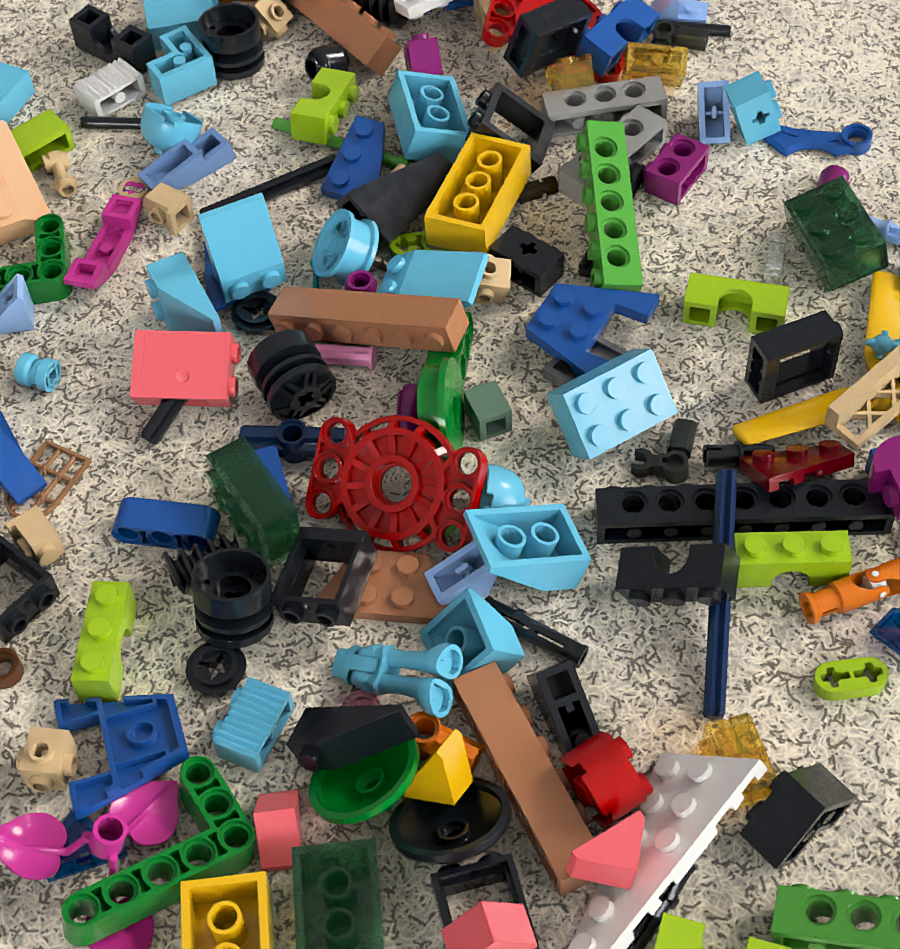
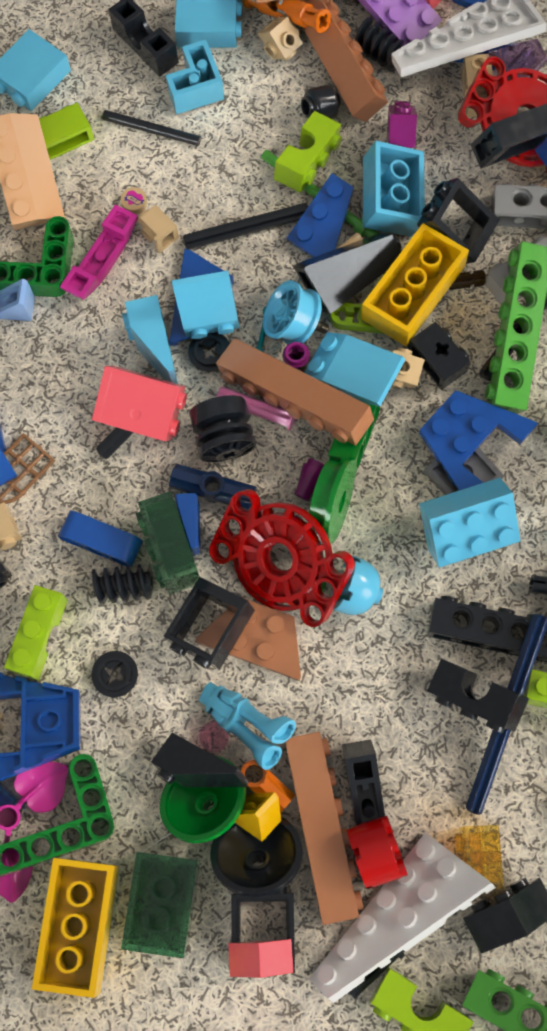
camera: 15 degrees right, 20 degrees up
(34, 371) = (28, 370): medium azure wheel -> none
(57, 163) = (75, 155): tan bar -> none
(110, 88) = (132, 86): white brick -> none
(166, 127) = (174, 146): medium azure cylinder -> none
(189, 162) = (182, 183): medium blue slope -> none
(232, 598) = (136, 625): black wheel -> none
(233, 39) = (244, 61): black wheel -> none
(252, 724) = (131, 730): medium azure brick -> none
(277, 828) = (134, 818): coral slope -> none
(458, 572) = (316, 645): light blue slope -> none
(477, 631) = (308, 702): medium azure slope -> none
(488, 410) = (371, 495): sand green brick -> none
(530, 545) = (369, 640): medium azure slope -> none
(570, 73) = (525, 172): clear yellow brick -> none
(571, 649) = (352, 701): black pin -> none
(611, 856) = (365, 921): coral slope -> none
(674, 464) = (505, 583): pearl dark grey bar -> none

